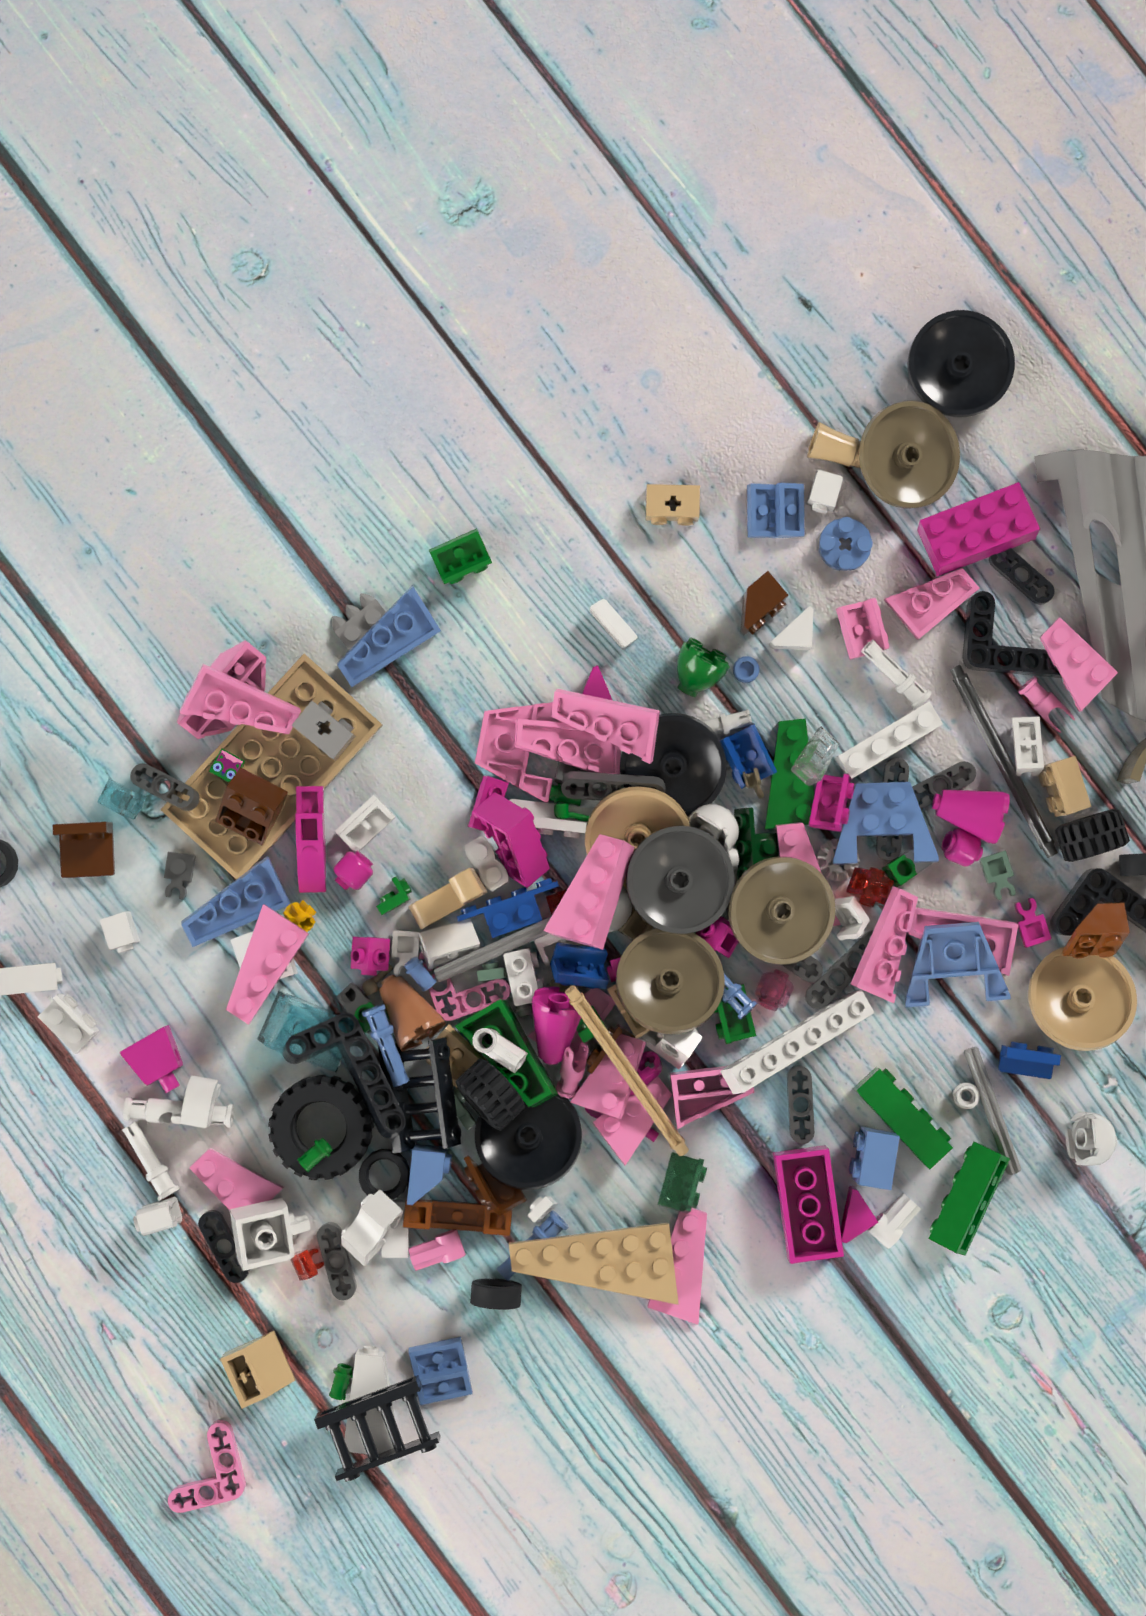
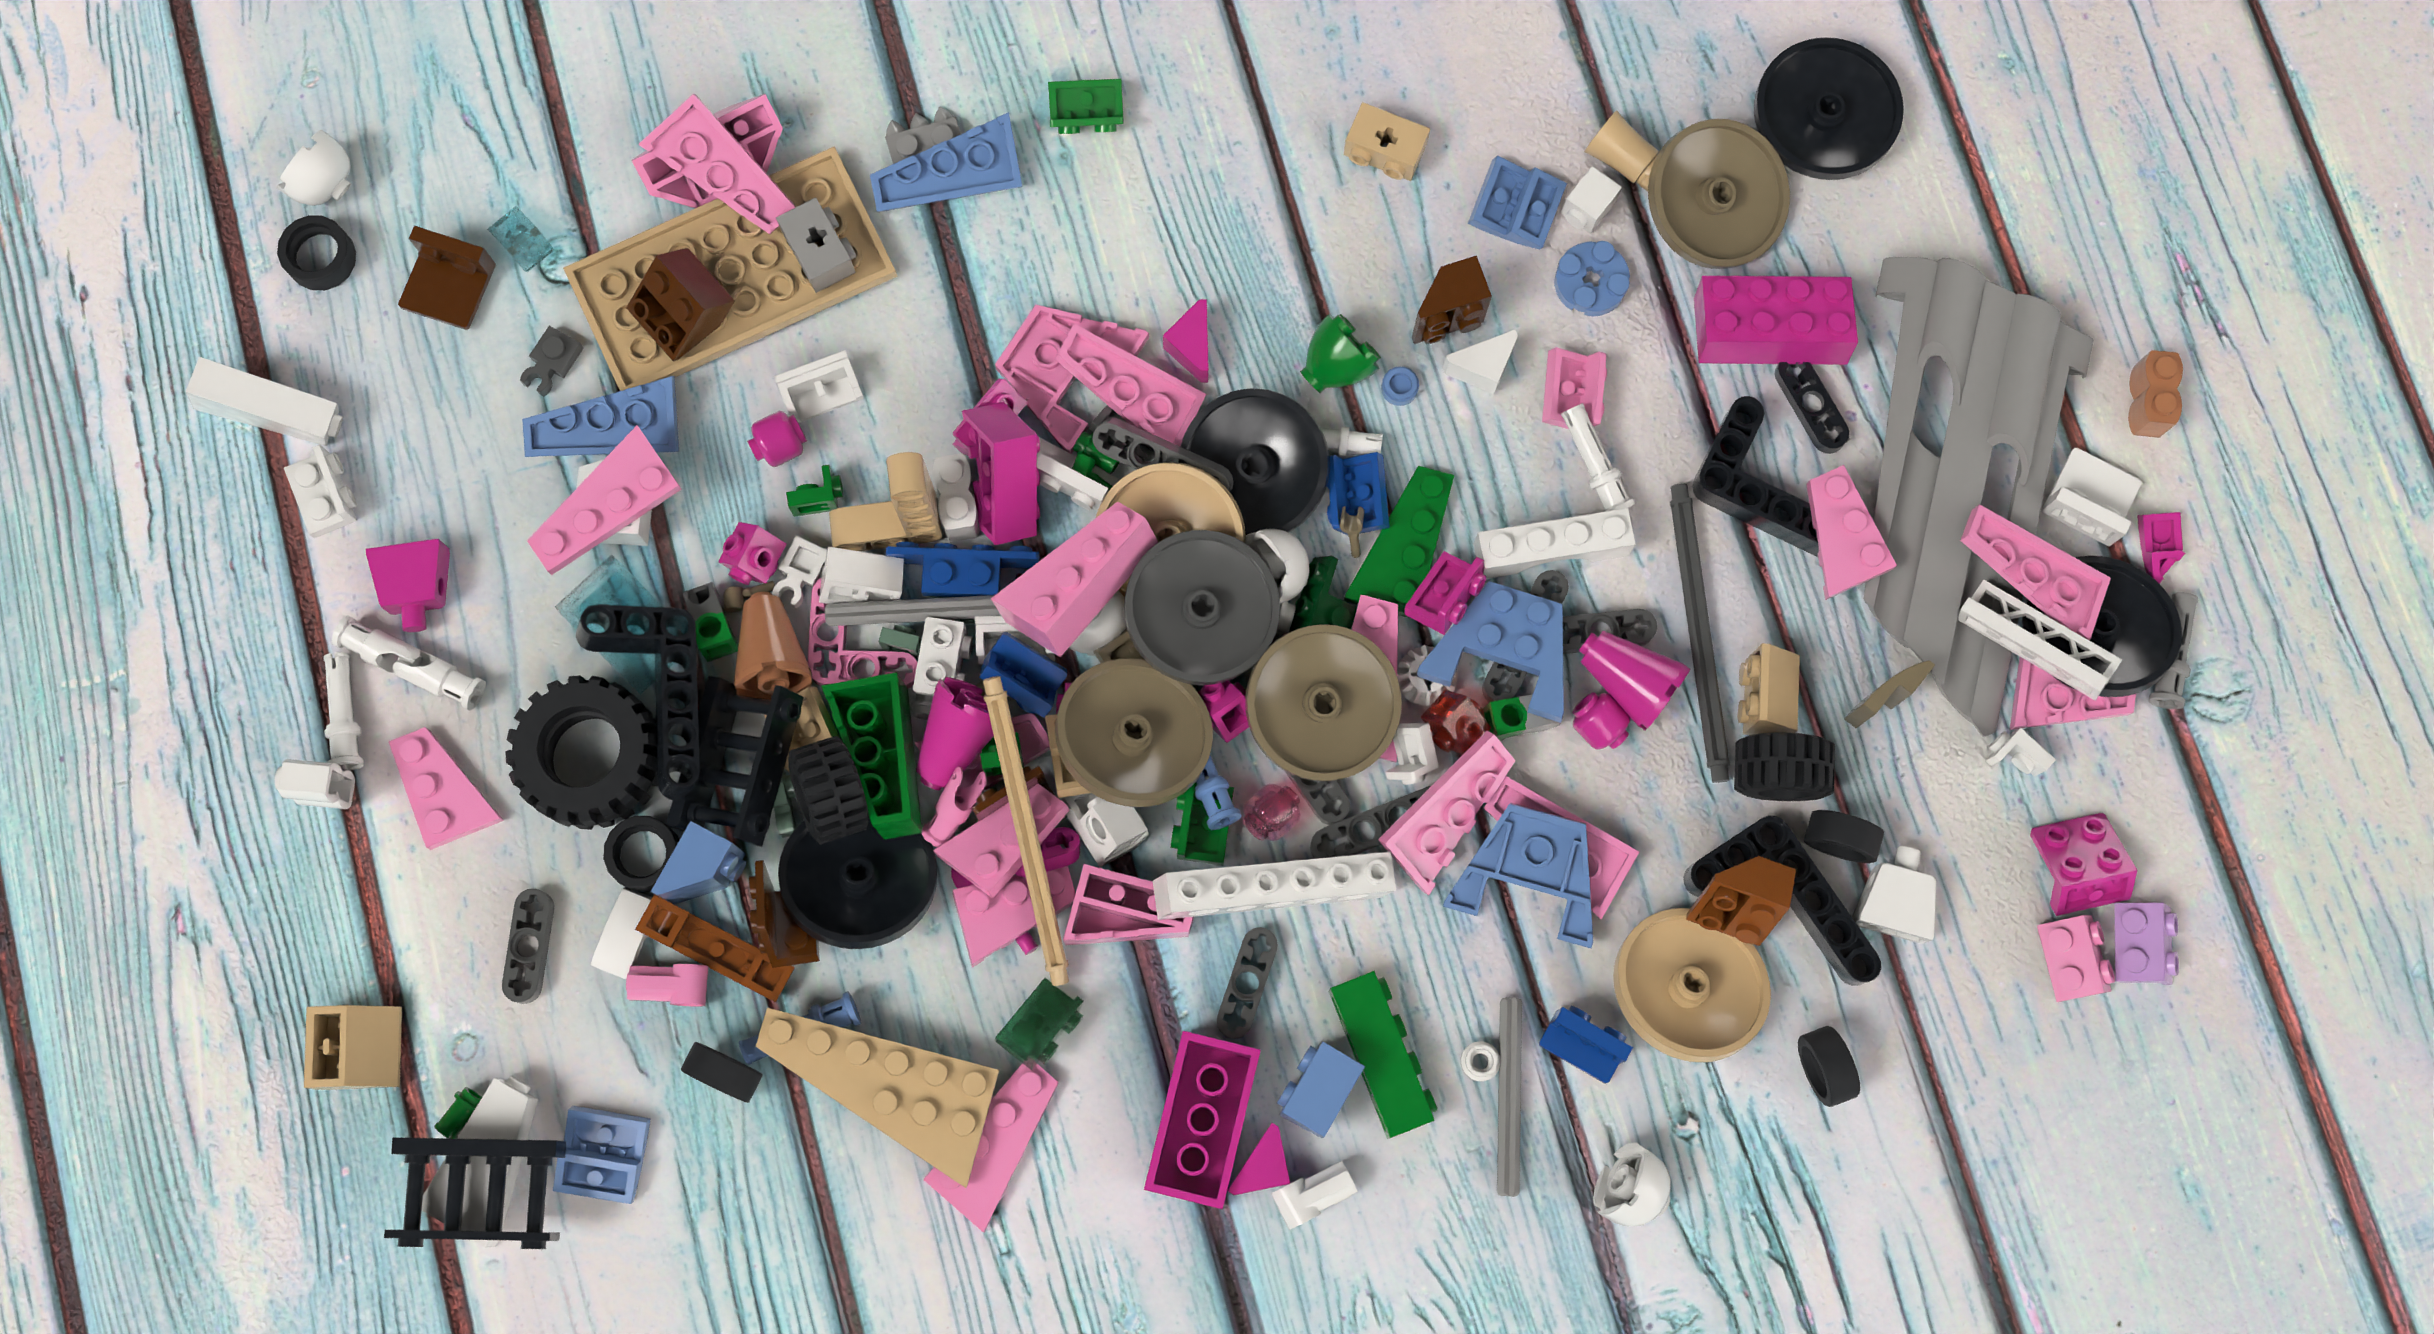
camera: 15 degrees right, 10 degrees down
(120, 931) = (440, 400): white brick -> none
(175, 786) = (581, 254): dark grey beam -> none
(199, 1101) = (439, 650): white brick -> none
(208, 1232) = (372, 839): black beam -> none
(218, 1482) = (230, 1189): bright pink beam -> none
(226, 765) = (671, 238): tile -> none
(278, 1230) = (458, 884): white hinge -> none
(300, 915) = (684, 469): yellow gear -> none
(304, 1265) = (481, 931): clear red tile -> none
(310, 839) = (737, 377): dark pink slope -> none
(315, 1154) = (557, 775): green pin -> none
(365, 1235) = (591, 910): white brick -> none
(382, 1034) = (720, 654): medium blue pin -> none
(419, 973) = (805, 601): medium blue pin -> none
(501, 1049) = (865, 731): white piece -> none
(541, 1208) = (834, 982): white plate -> none
(613, 623) = (1248, 262): white slope -> none
(620, 723) = (1203, 377): bright pink wing -> none
(805, 768) = (1447, 528): clear slope -> none
(931, 602) = (1677, 392): bright pink wing -> none
(968, 1198) = (1430, 1202): green brick -> none
(997, 870) = (1638, 770): sand green plate -> none
(1027, 745) = (1739, 618): white hinge -> none
(1032, 927) = (1657, 867): dark pink plate -> none
(1042, 700) = (1781, 572): bright pink piece -> none

